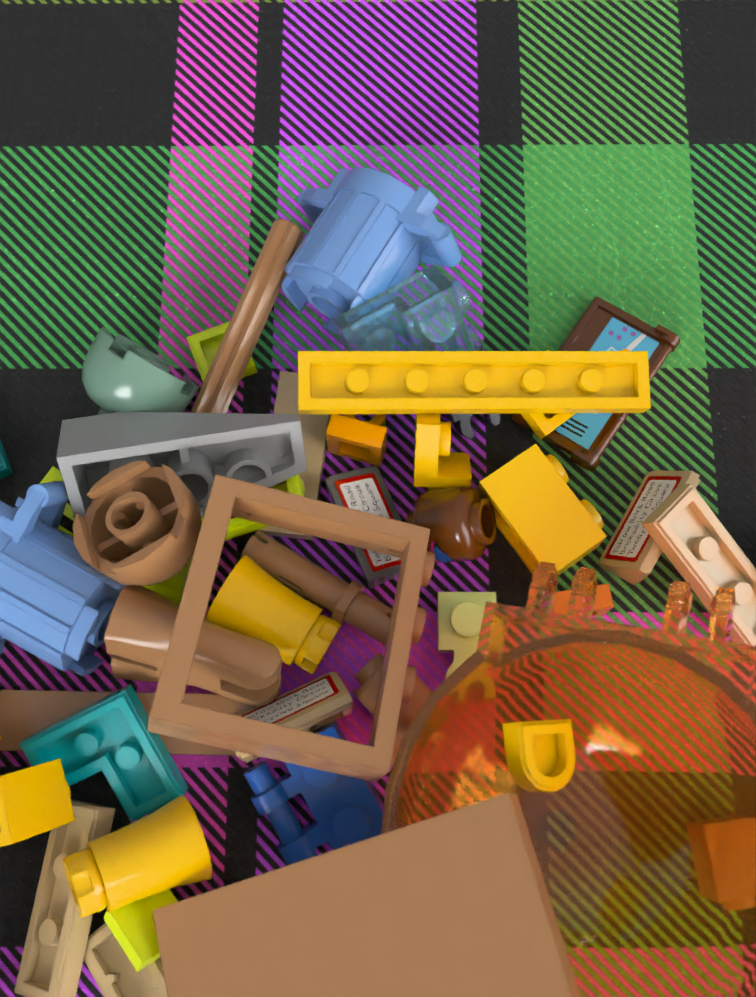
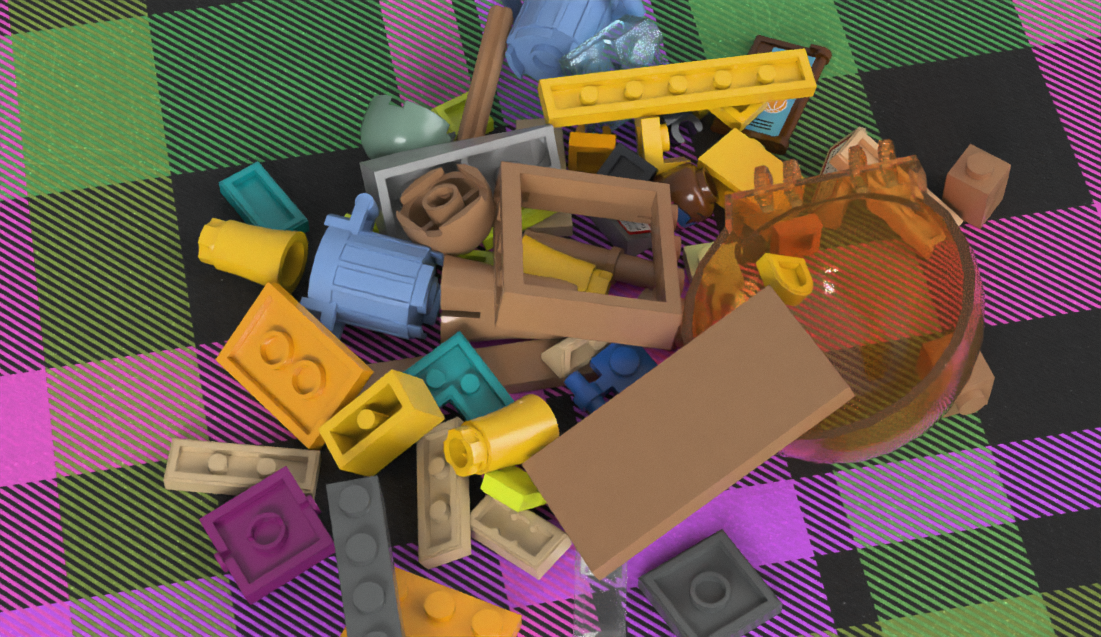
camera: 15 degrees left, 20 degrees down
(386, 485) = (627, 164): none -> black tile

